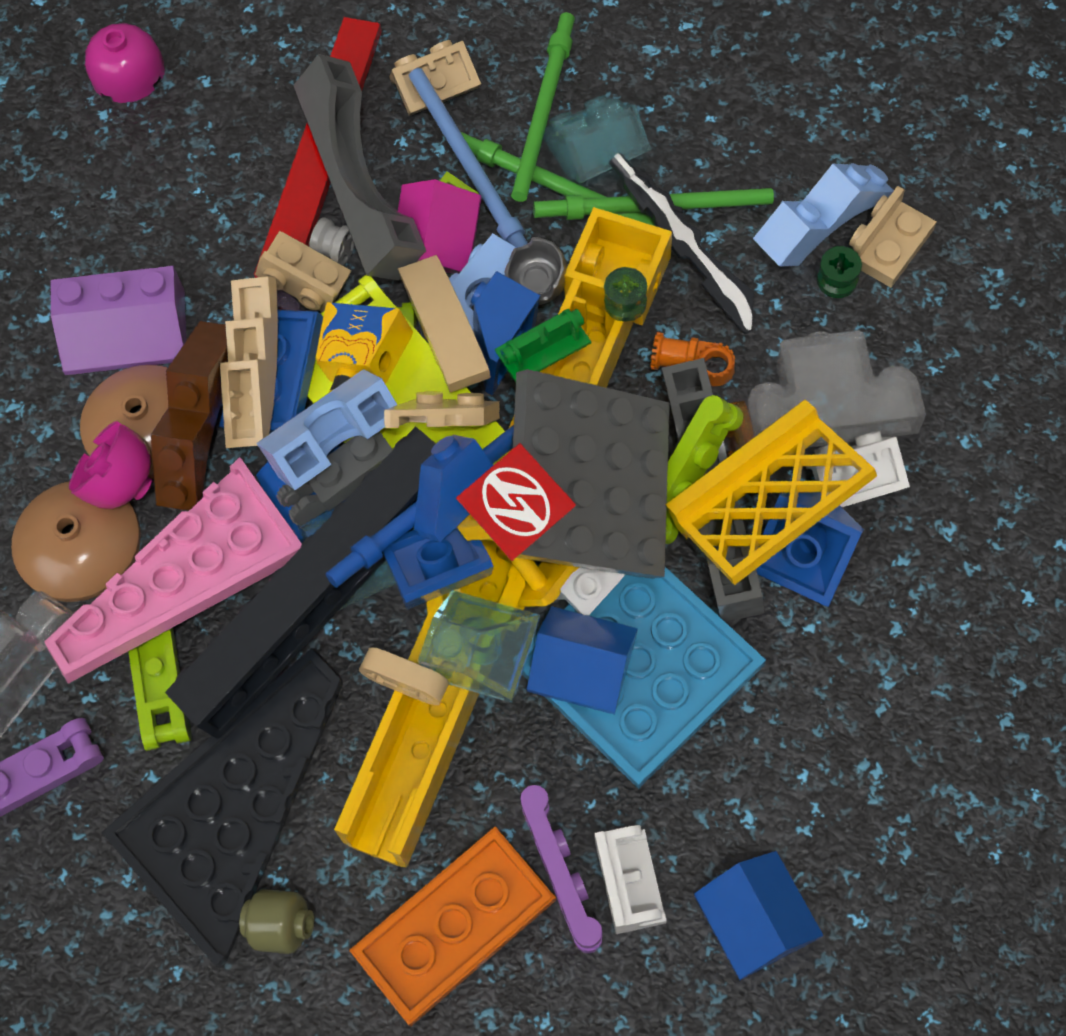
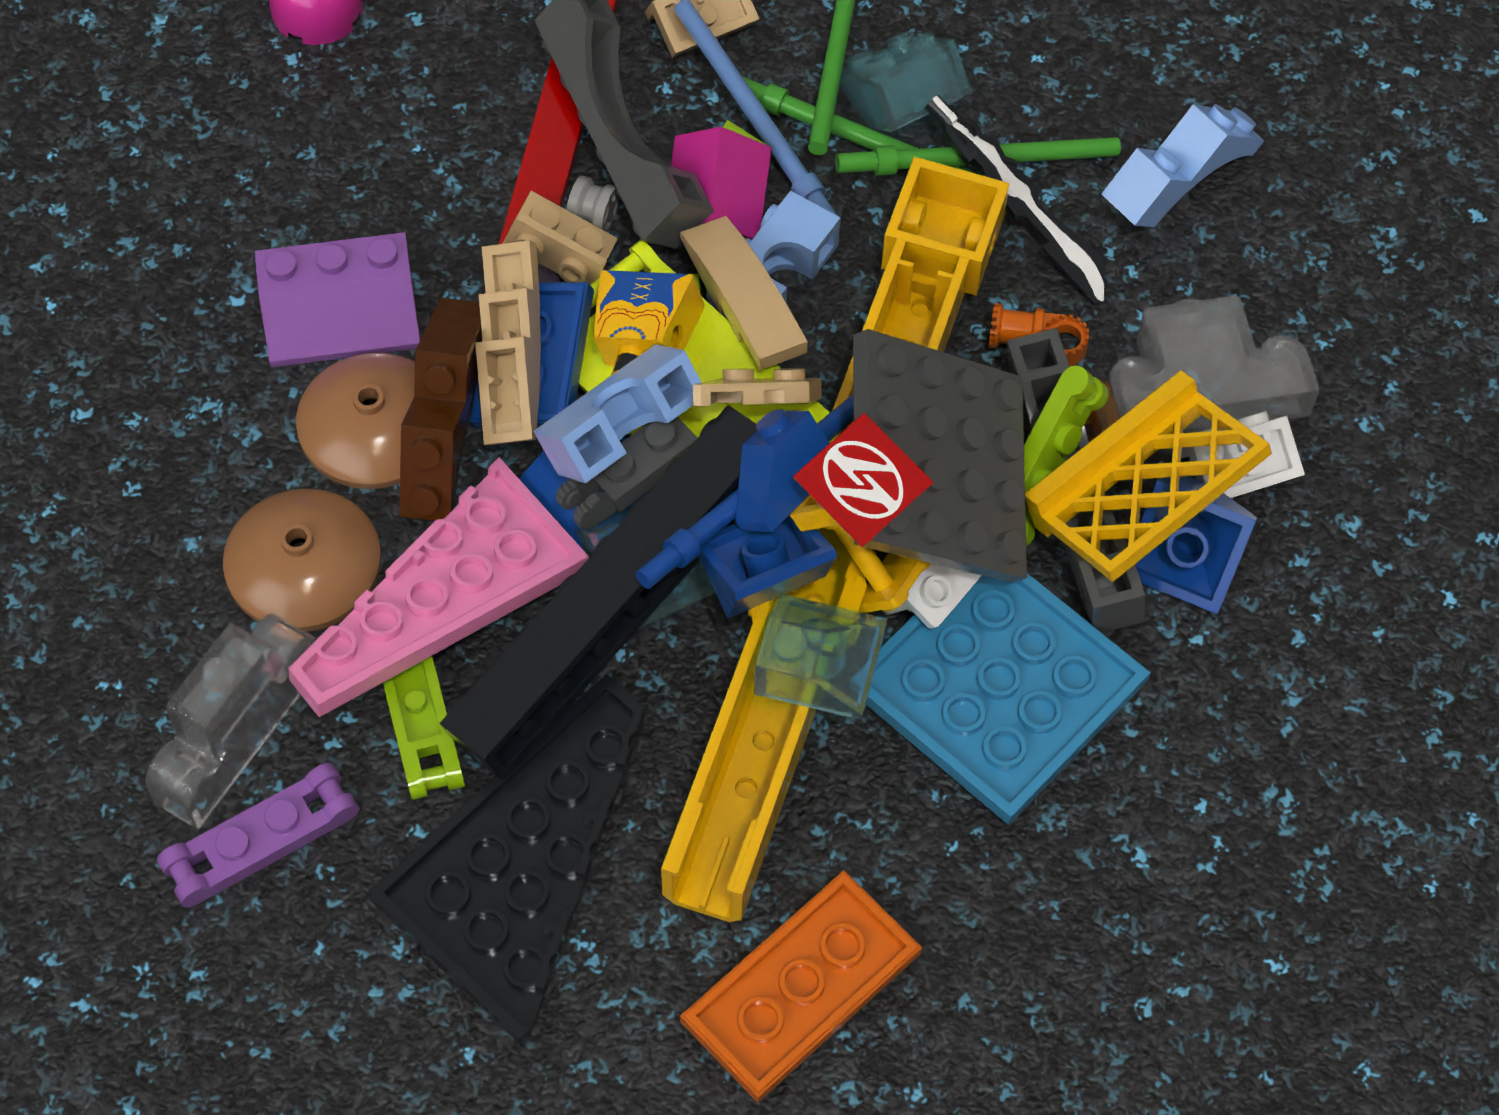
camera: 10 degrees left, 5 degrees down
(114, 470) = (351, 471): dark pink cylinder -> none
(276, 921) = (589, 986): olive head -> none
(404, 676) = (734, 690): tan beam -> none
(501, 314) = (815, 287): blue slope -> none
(539, 268) = (849, 232): flat silver hair -> none
(544, 343) = (874, 308): green hinge -> none
(567, 888) = (914, 899): medium lavender plate -> none
(581, 659) = (934, 677): blue slope -> none
(625, 305) = (953, 263): clear green wheel -> none
(629, 879) = (1004, 925): white hinge -> none
(757, 914) = (1158, 960): blue slope -> none
(830, 275) = (1193, 237): dark green wheel -> none
(891, 237) = (1261, 194): tan bracket -> none

